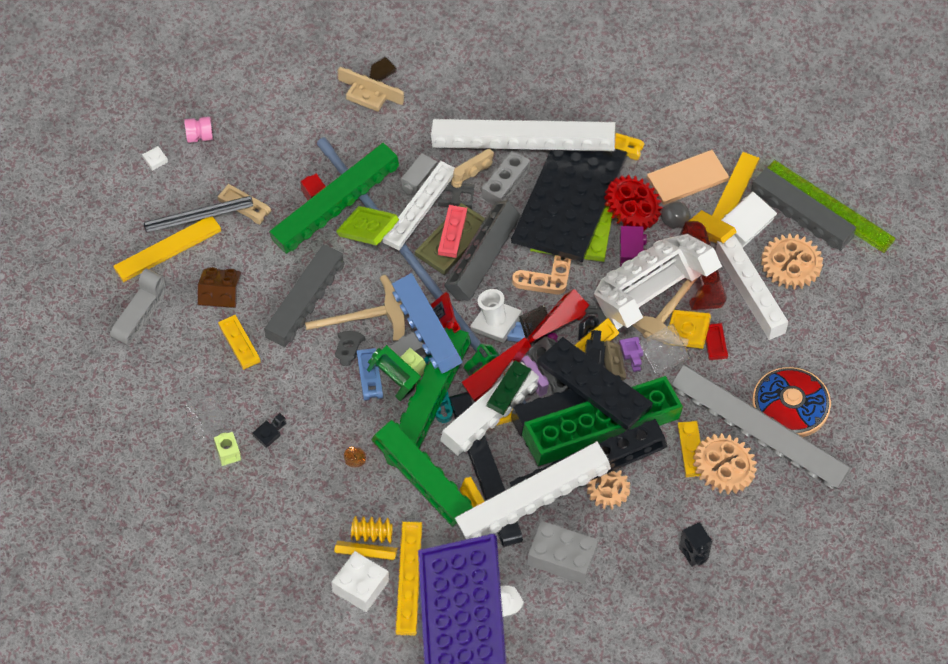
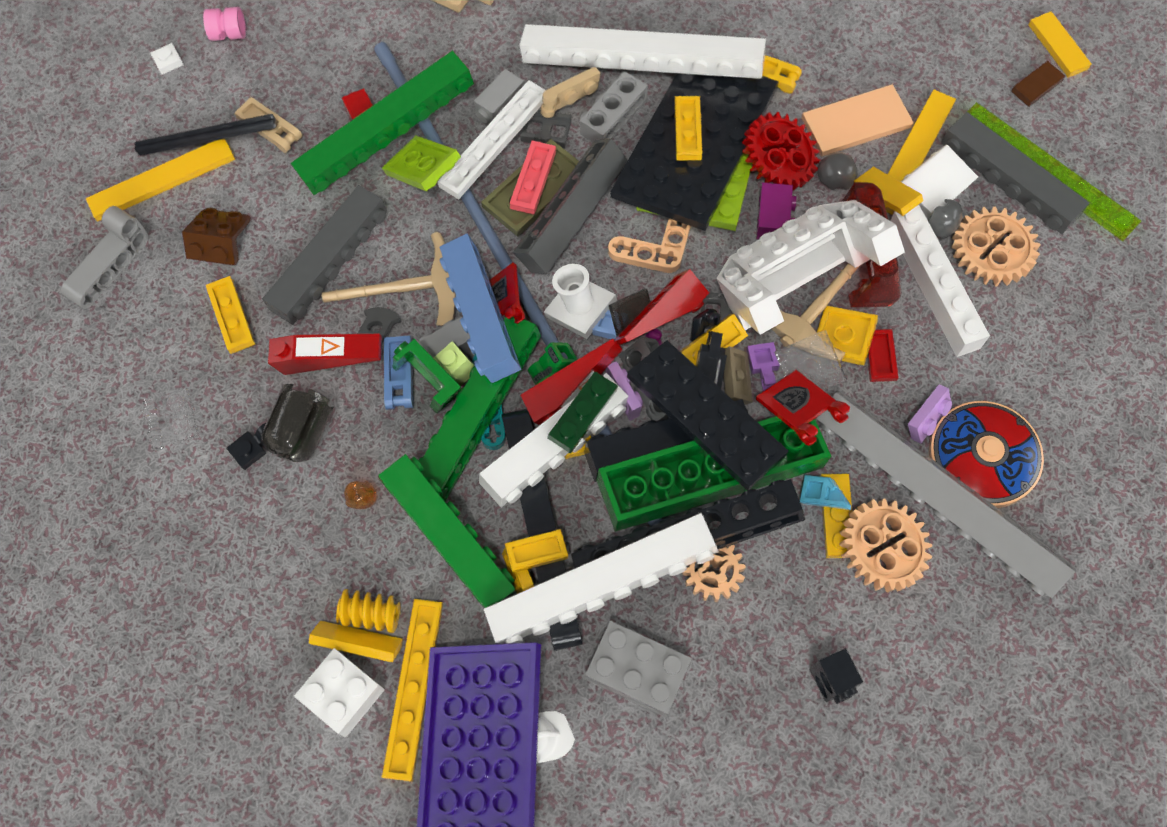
camera: 10 degrees right, 10 degrees up
(227, 455) = (192, 478): yellowish green brick -> none
(304, 411) = (296, 424): none -> clear smoke cylinder
(312, 362) = (322, 351): none -> red slope
(485, 481) = (536, 551): none -> yellow tile
(563, 189) = (688, 128): none -> yellow tile
(659, 372) = (799, 402): none -> red flag
(679, 433) = (823, 492): none -> medium azure tile
(750, 377) = (930, 413): none -> lavender plate
(755, 244) = (946, 219): none -> dark grey hair
(819, 143) = (1038, 83): none -> reddish brown tile
(834, 113) = (1059, 44): none -> yellow tile

